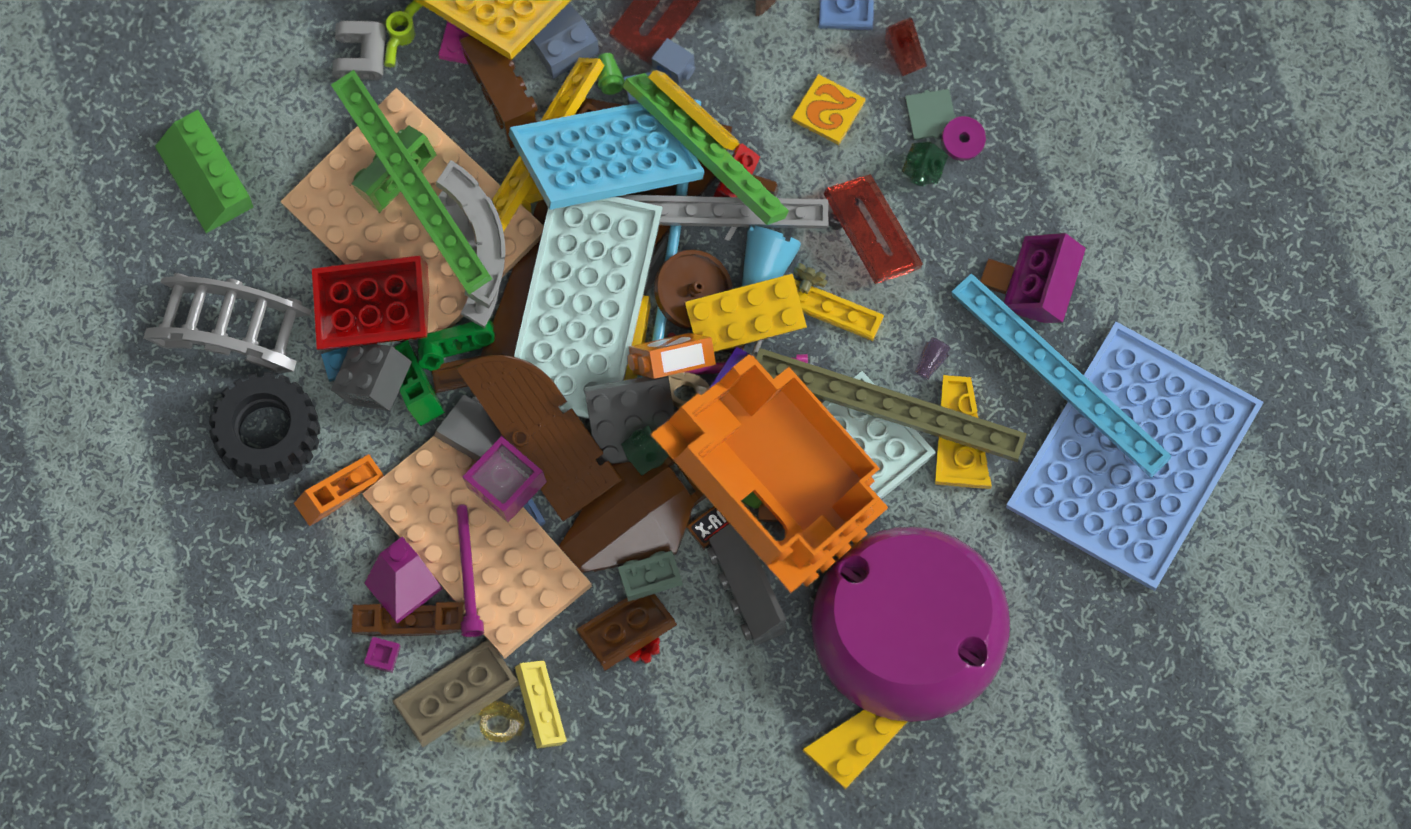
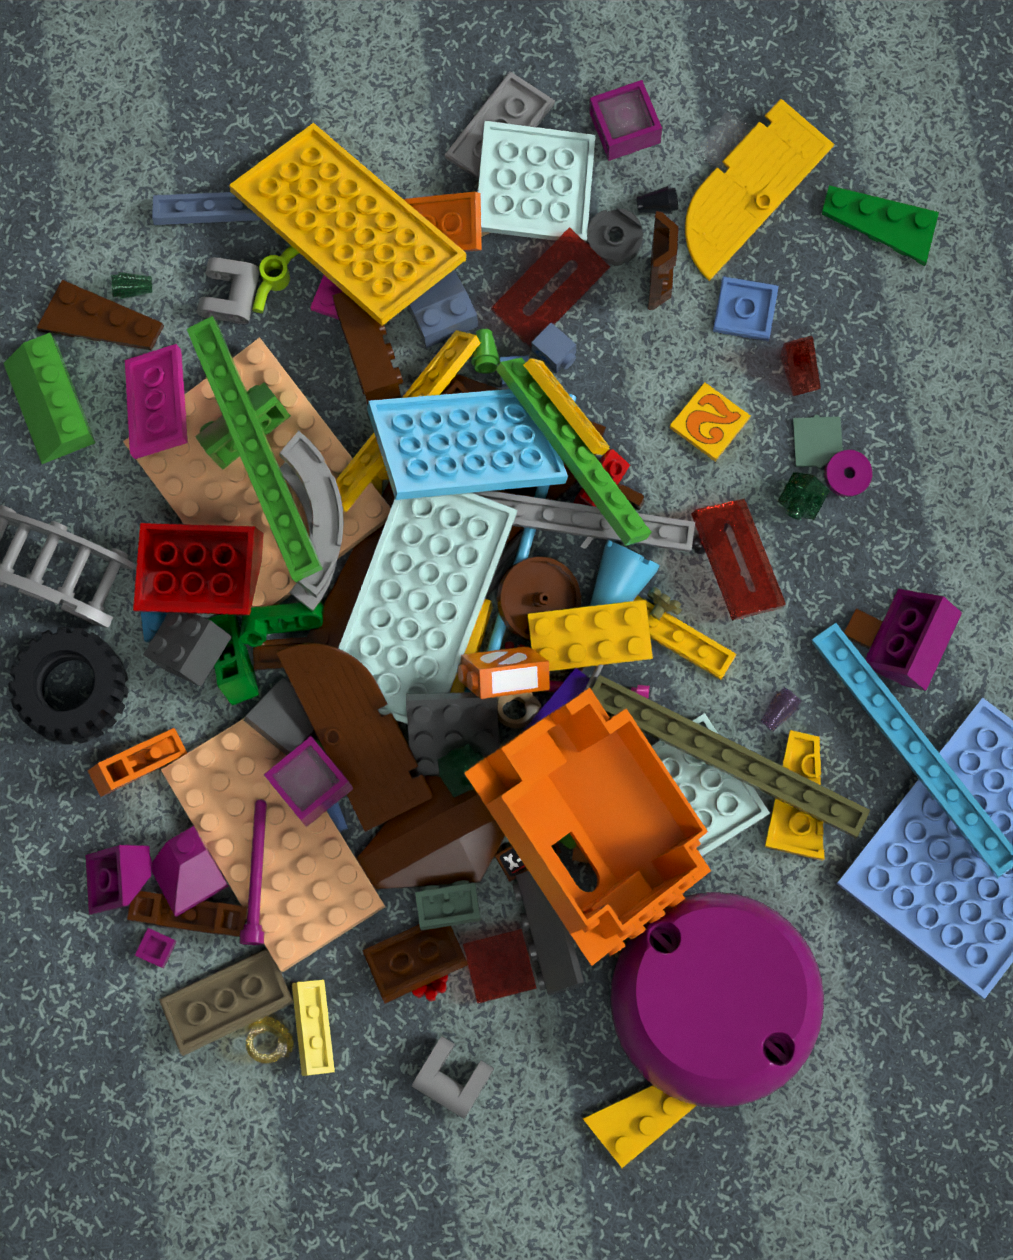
camera: 10 degrees right, 5 degrees up
(234, 92) = (93, 317): none -> reddish brown wing
(265, 58) = (130, 285): none -> clear green cone
(307, 159) = (155, 401): none -> dark pink plate
(334, 594) = (116, 876): none -> magenta slope
(673, 742) = (444, 1089): none -> light grey connector
(706, 625) = (499, 966): none -> clear red plate

